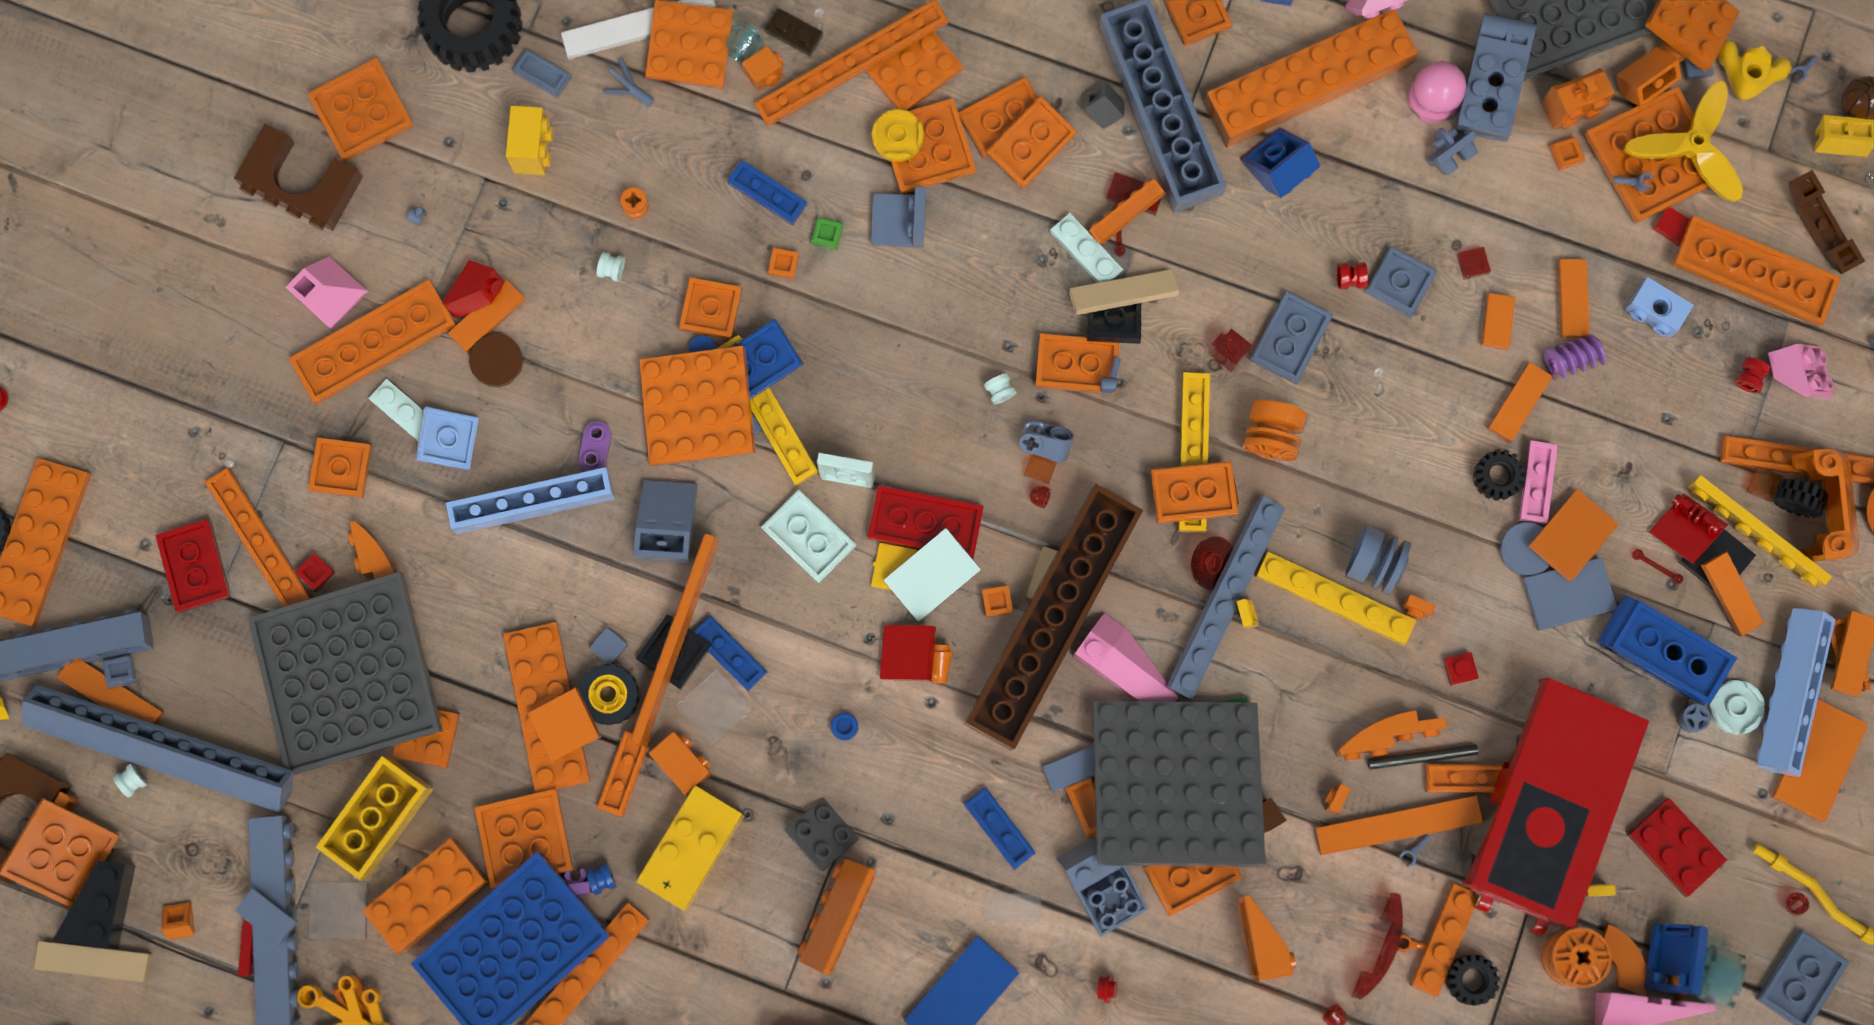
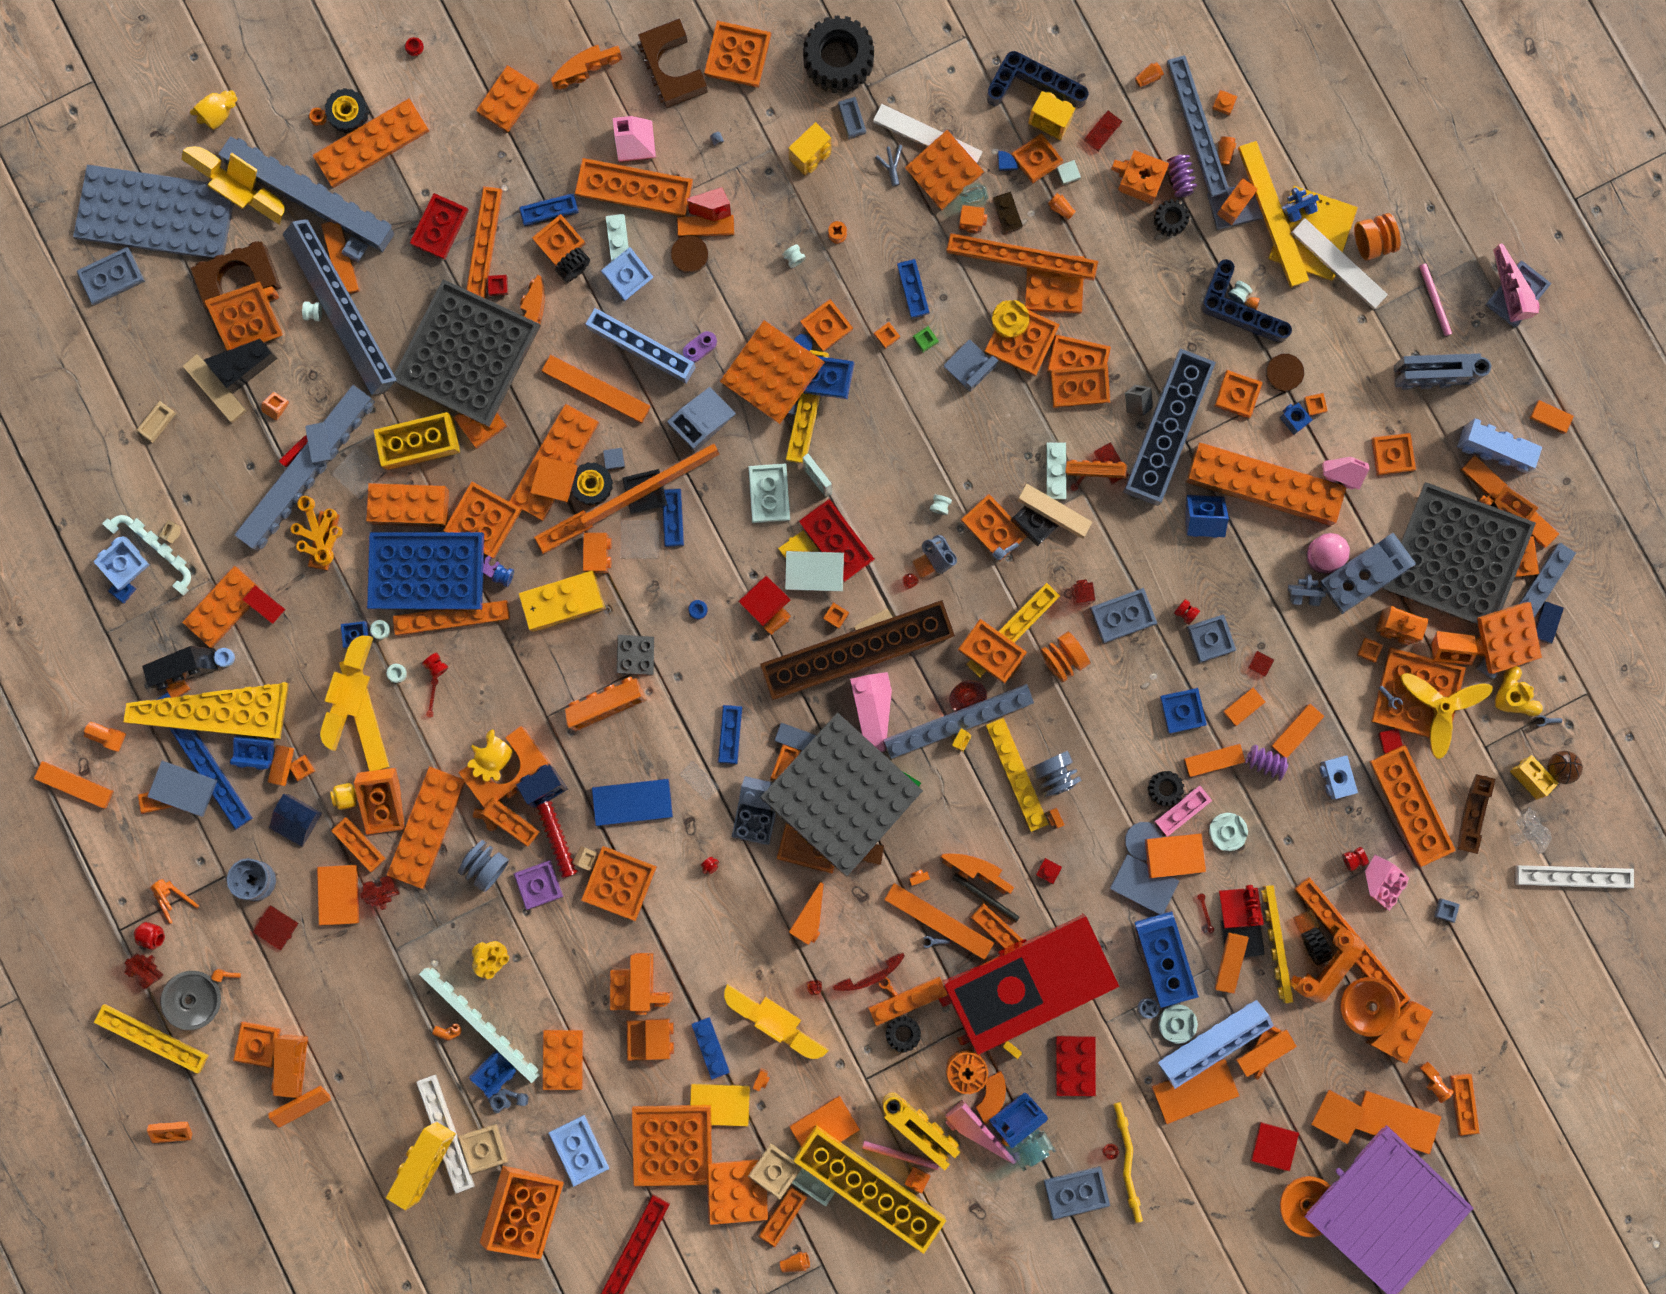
camera: 45 degrees right, 5 degrees up
(148, 366) = (507, 98): none -> orange plate
(198, 268) = (577, 67): none -> orange slope
(299, 445) = (548, 209): none -> blue tile
(379, 479) = (572, 264): none -> black tyre
(522, 589) = (596, 389): none -> orange tile
(1442, 380) = (1183, 710): none -> blue plate
(1601, 463) = (1228, 831): none -> light aqua tile

